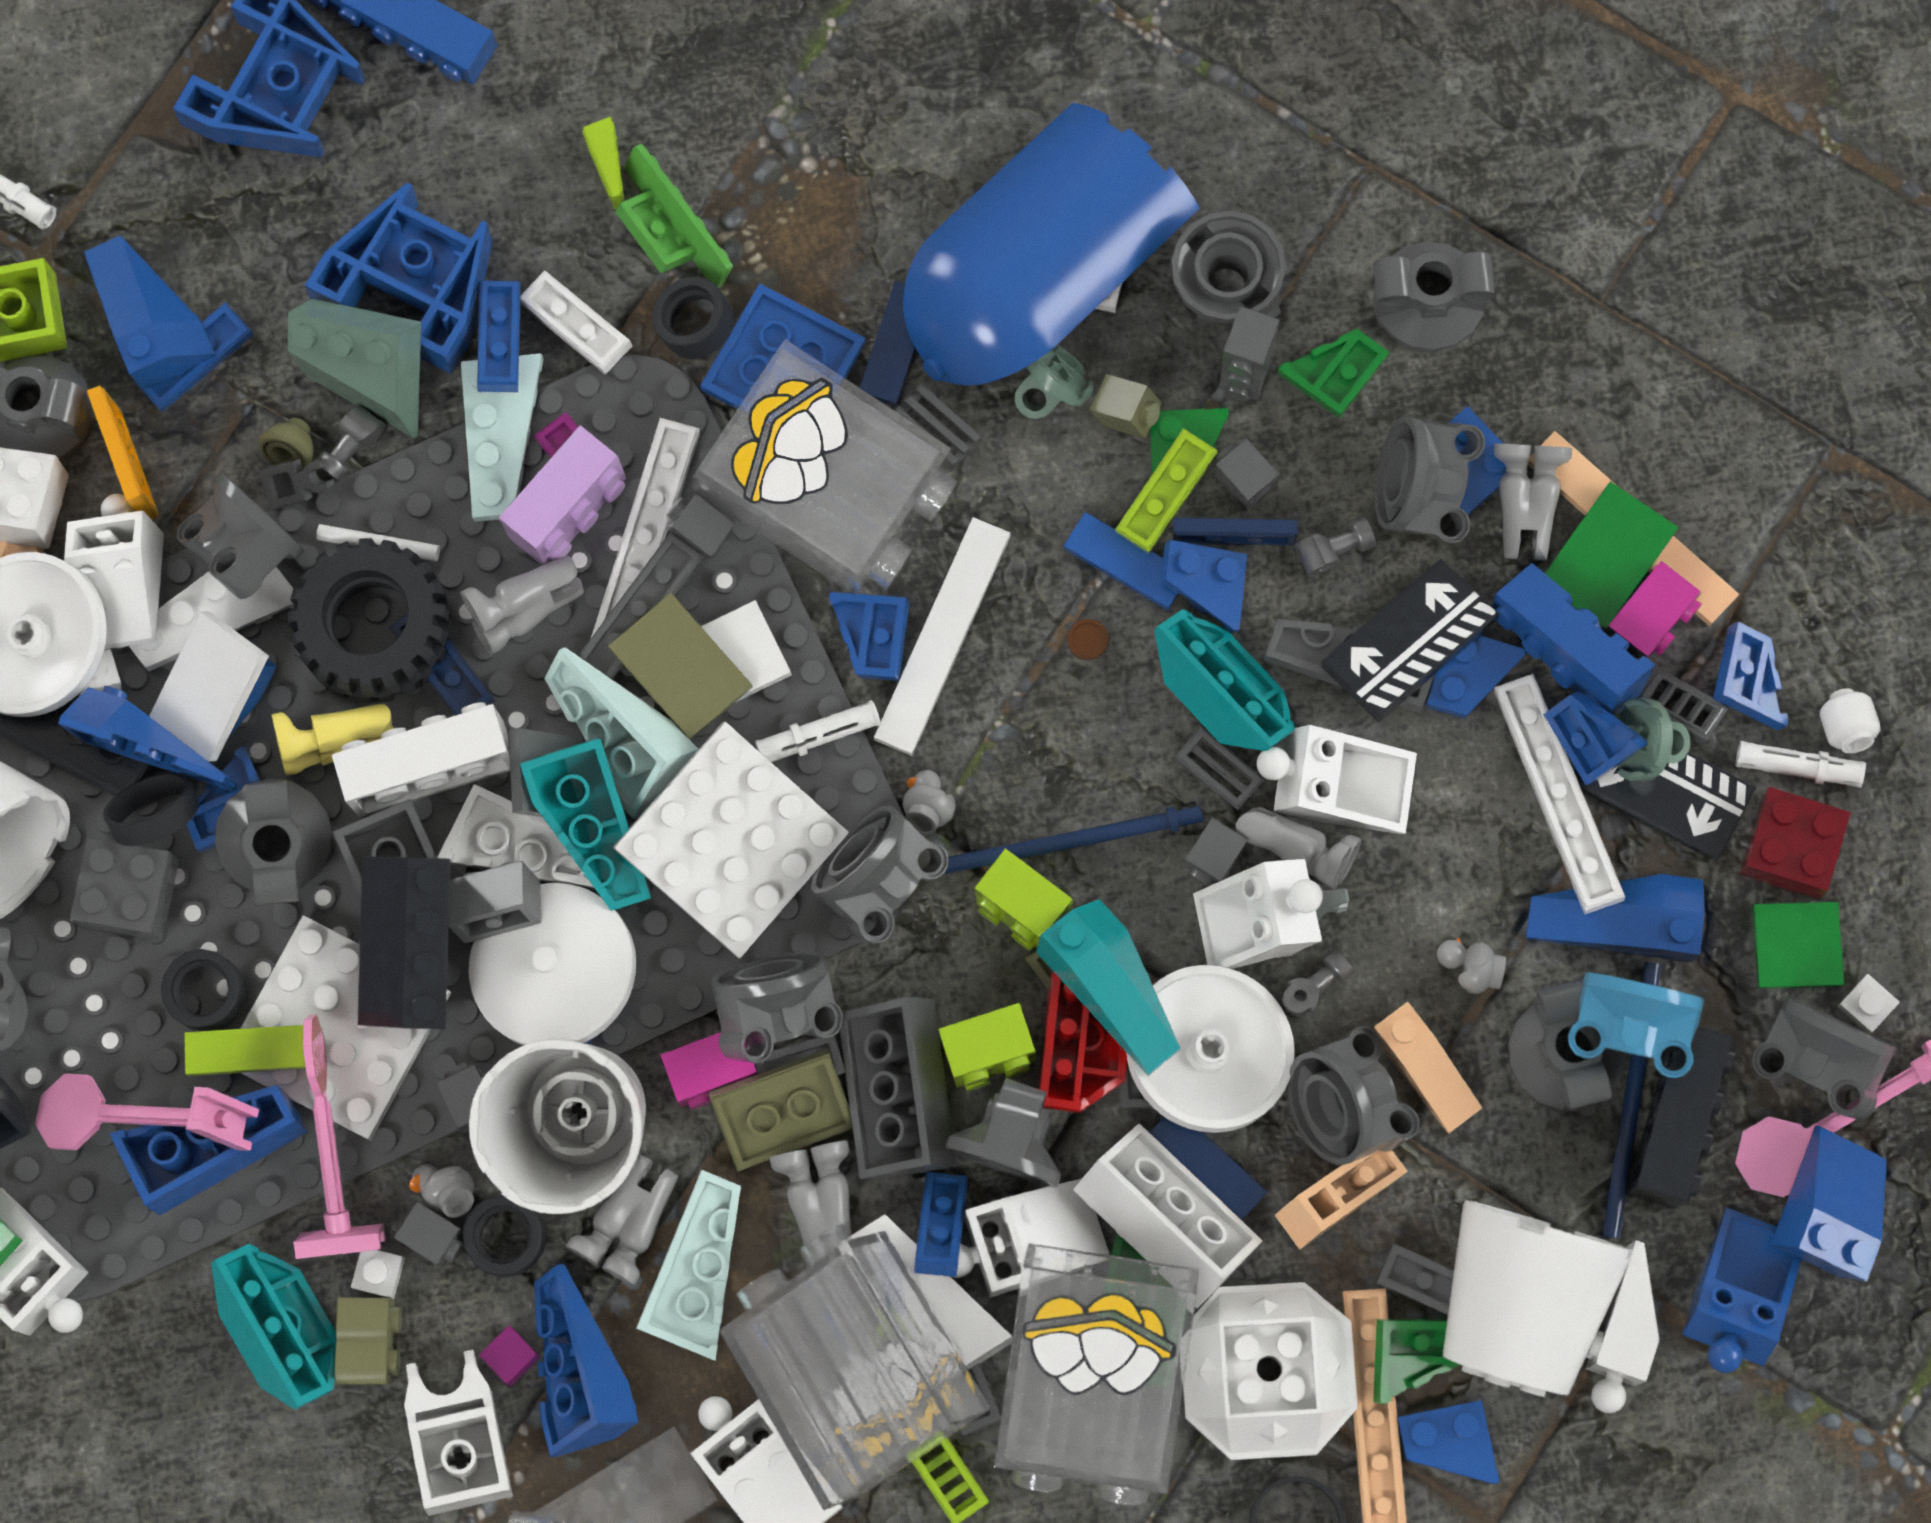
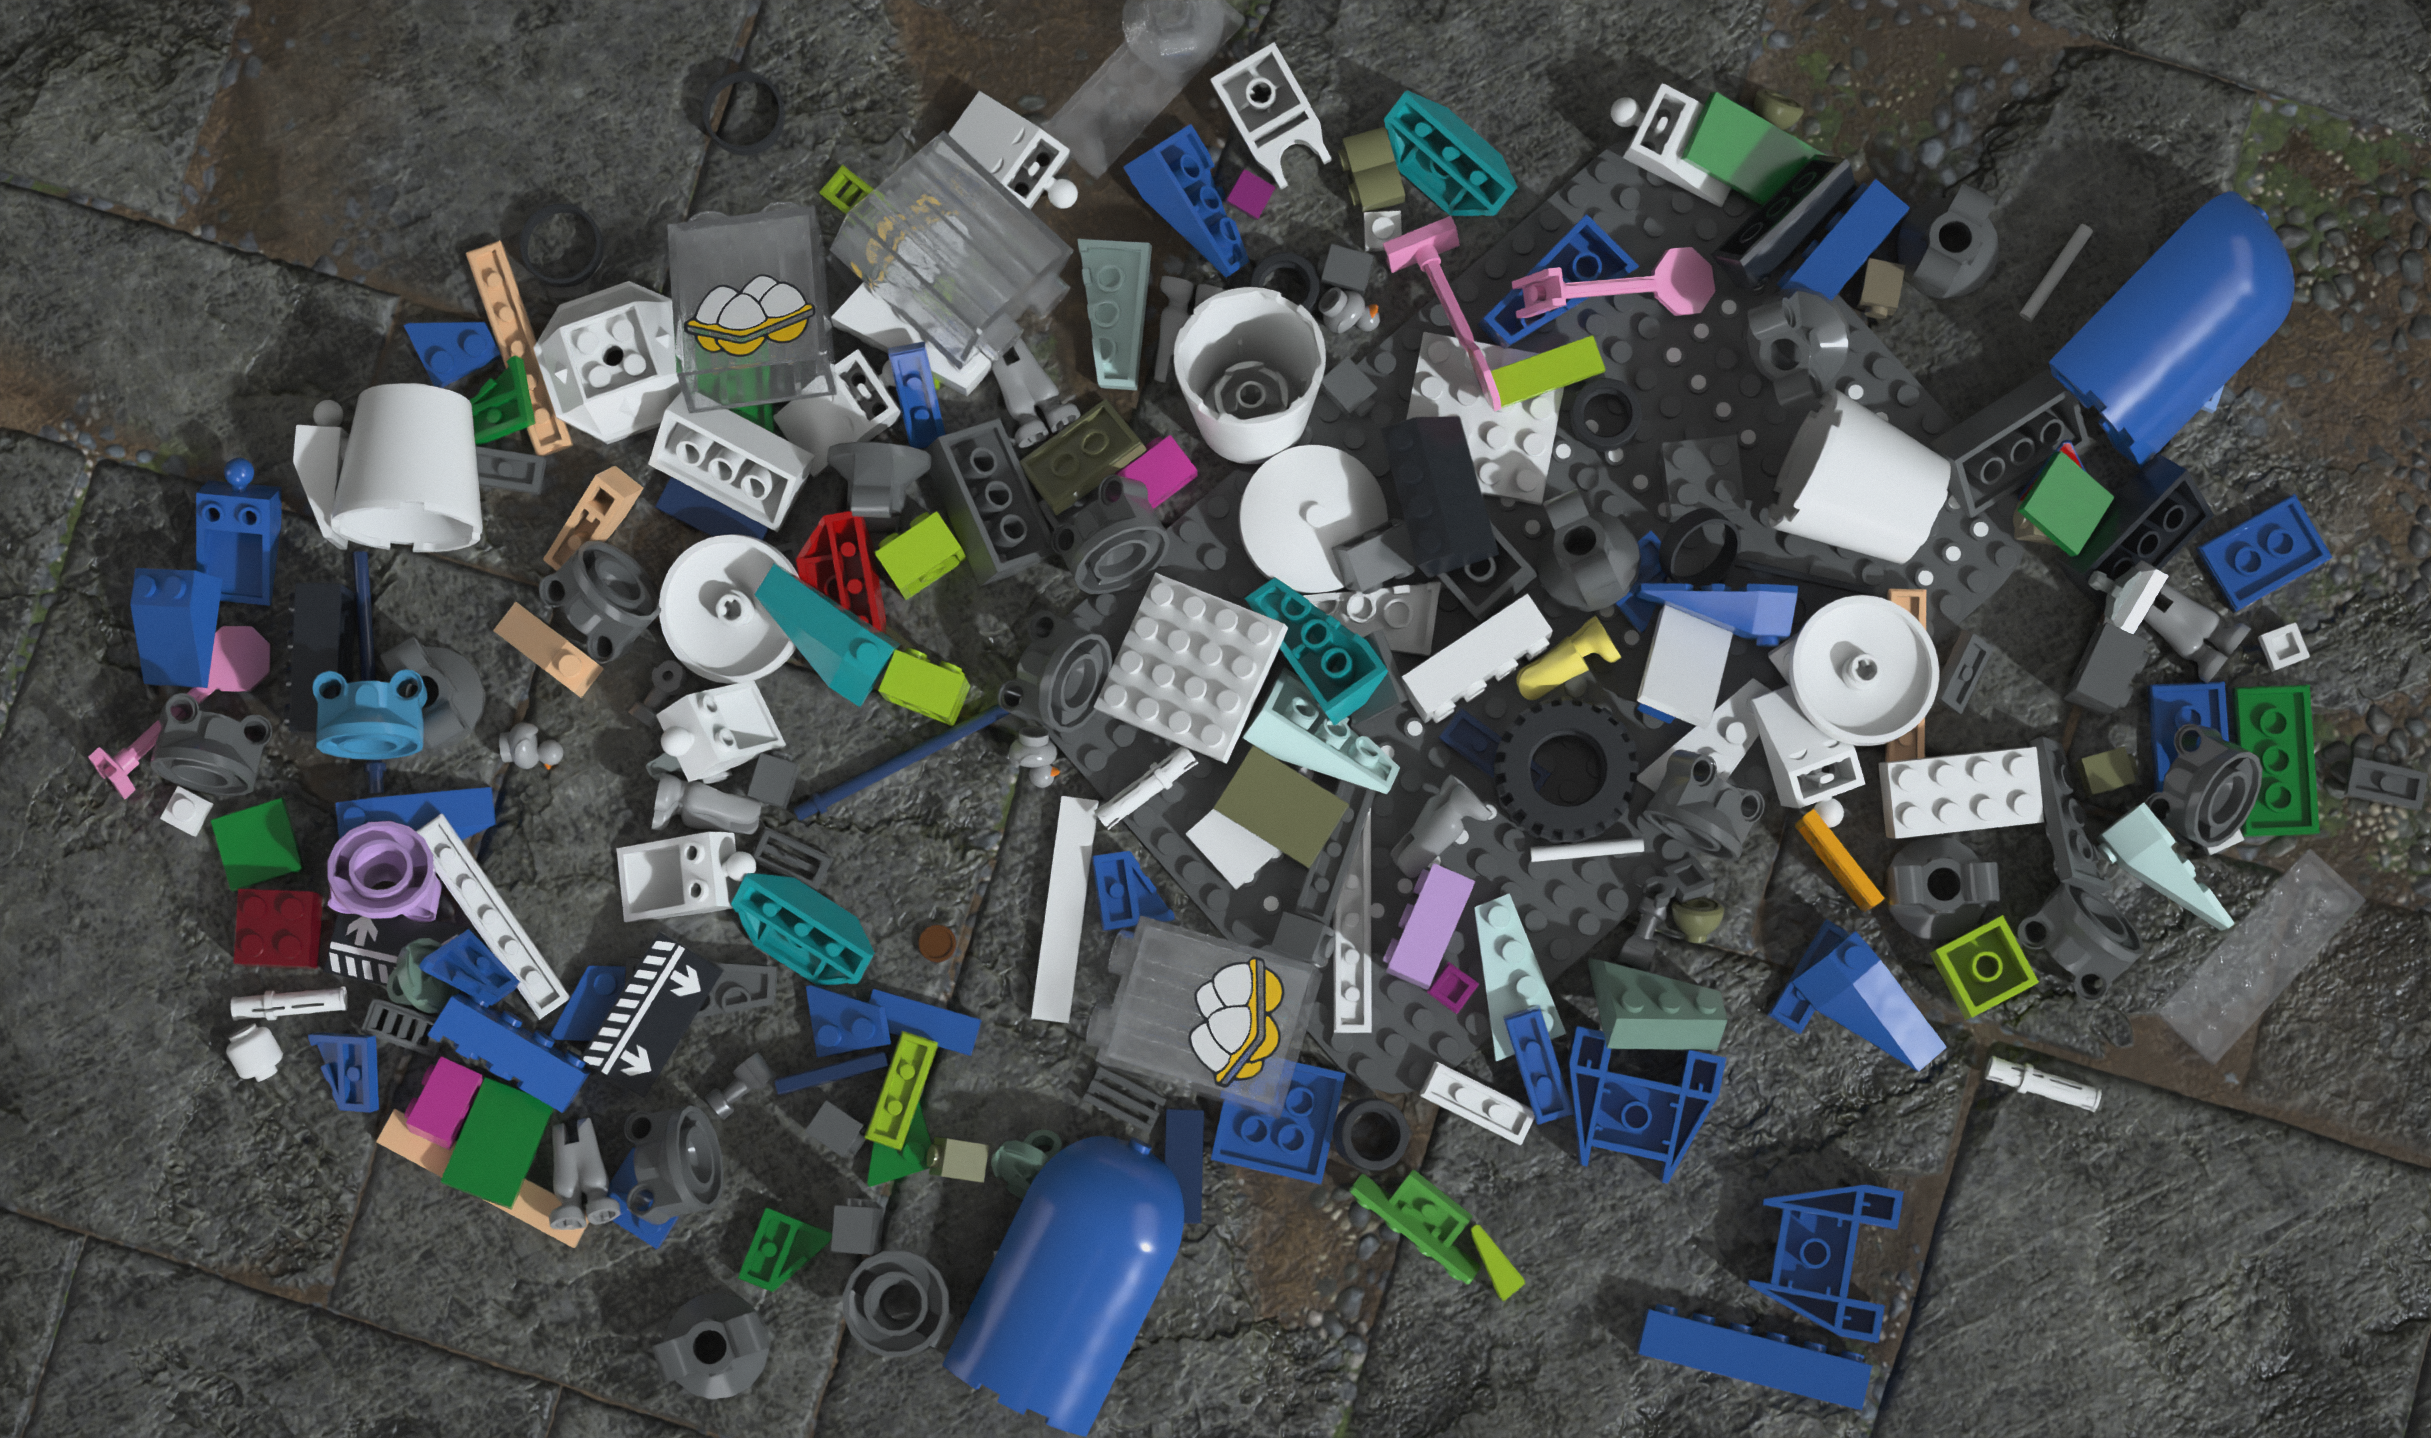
camera: 165 degrees right, 5 degrees up
(1658, 887) = (380, 854): none -> lavender piece

